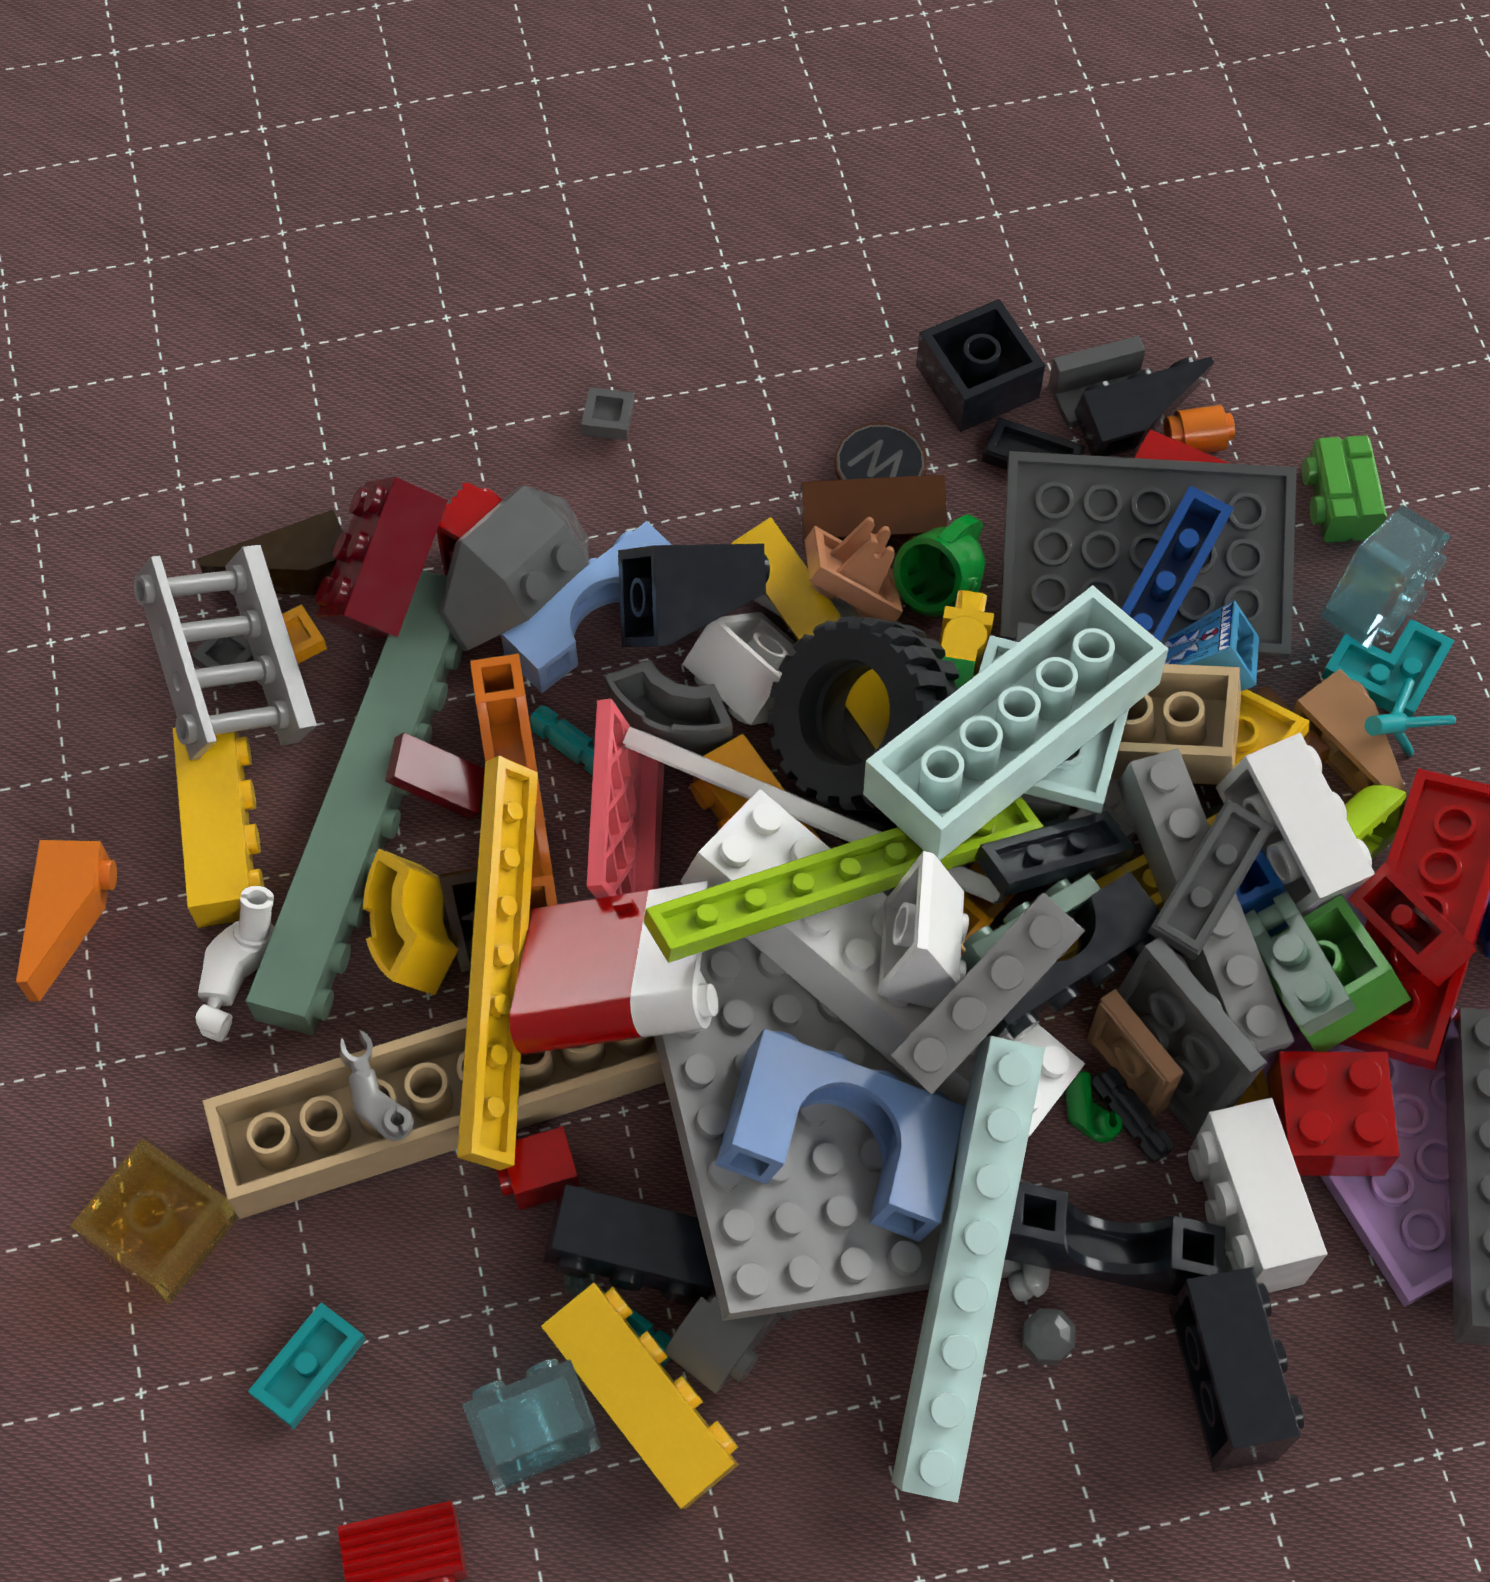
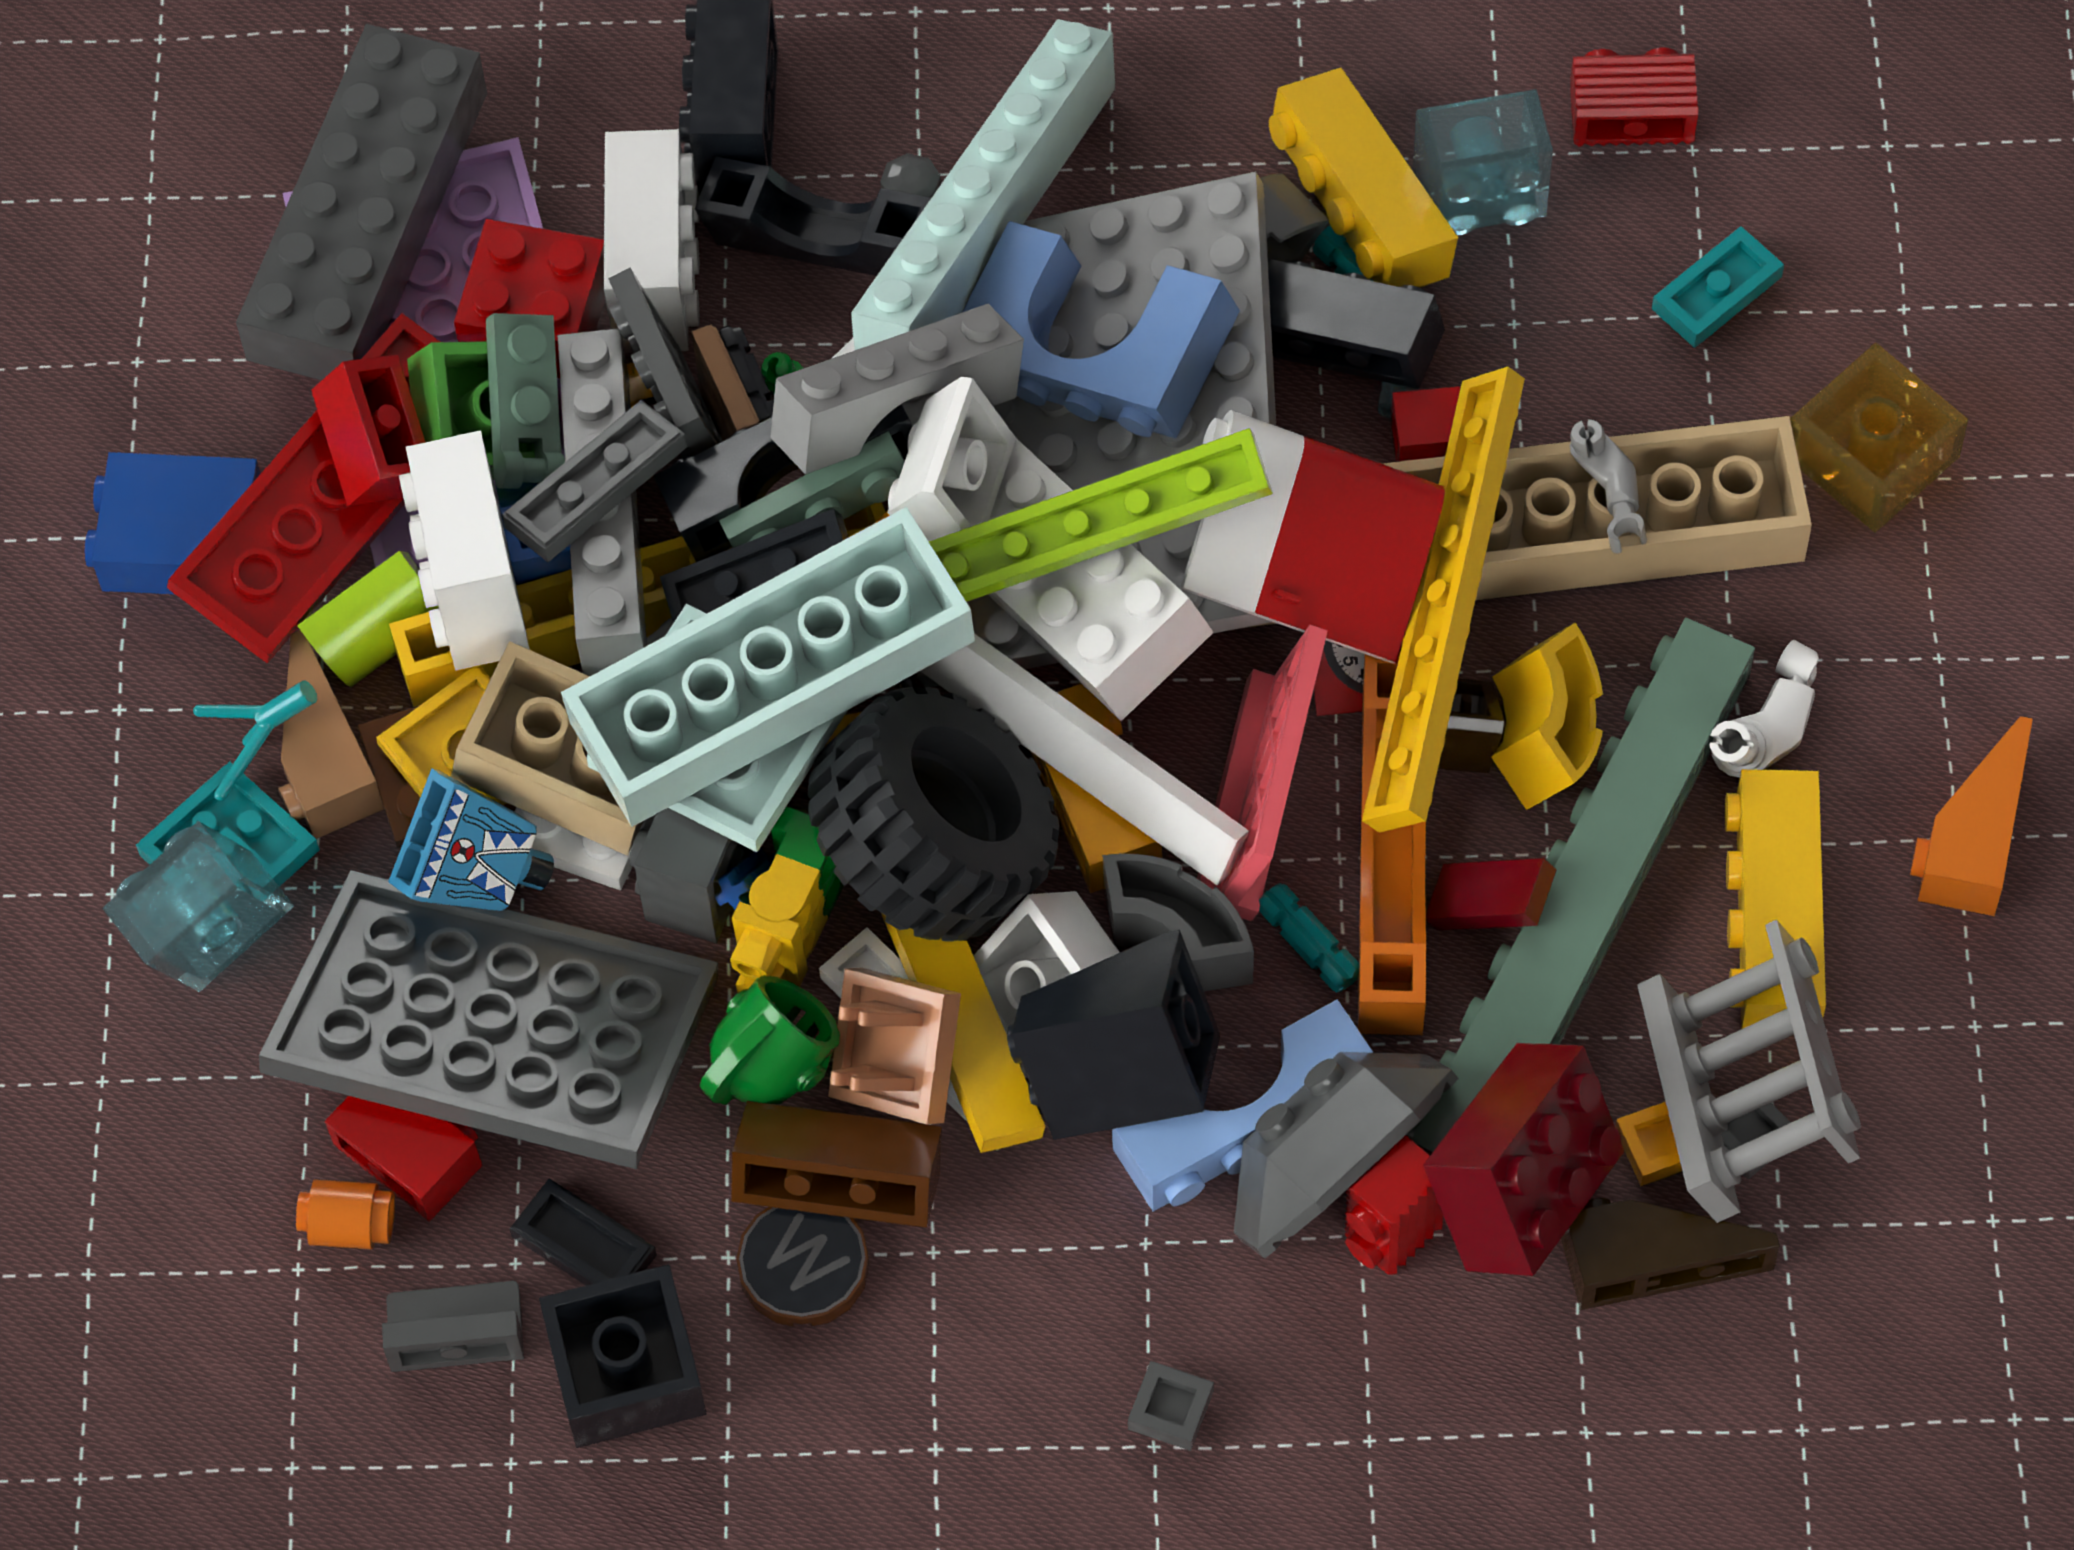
camera: 165 degrees left, 0 degrees up
(1122, 413) = (421, 1255): black slope -> none
(1176, 561) = (498, 926): blue brick -> none
(1344, 488) = (182, 1087): bright green brick -> none

